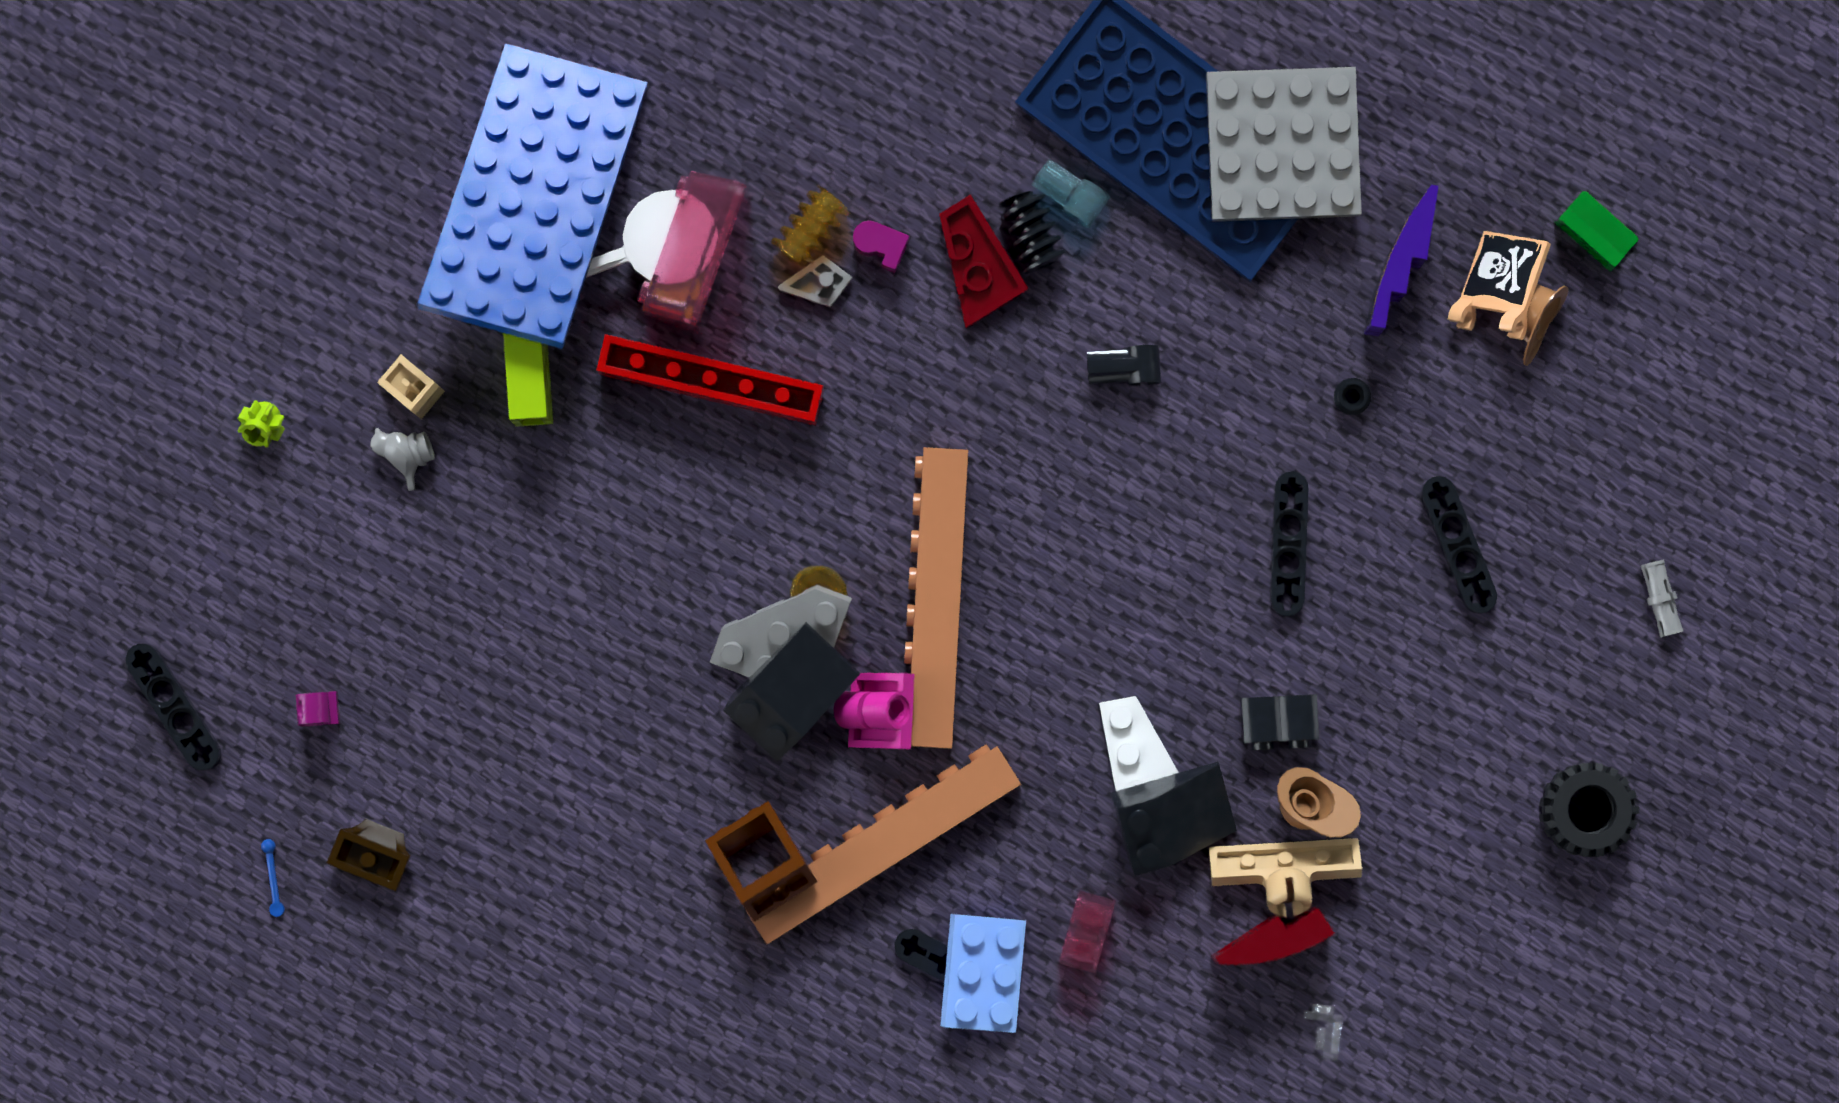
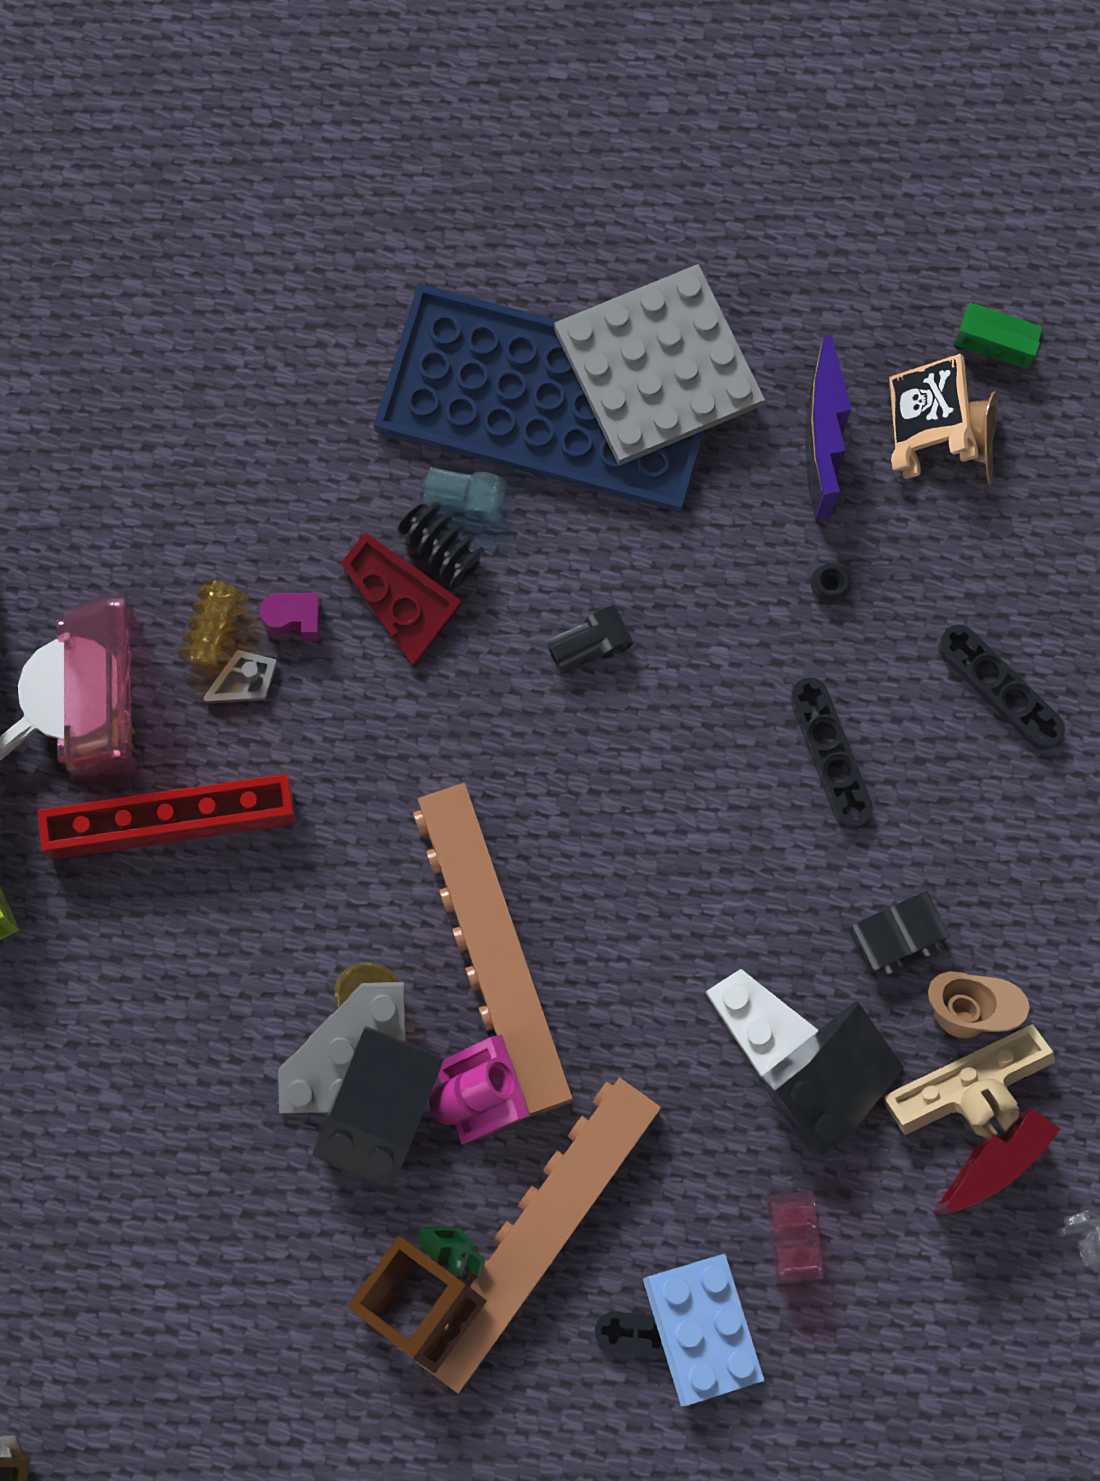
camera: 30 degrees left, 10 degrees down
(807, 827) = (451, 1248): none -> dark green plate

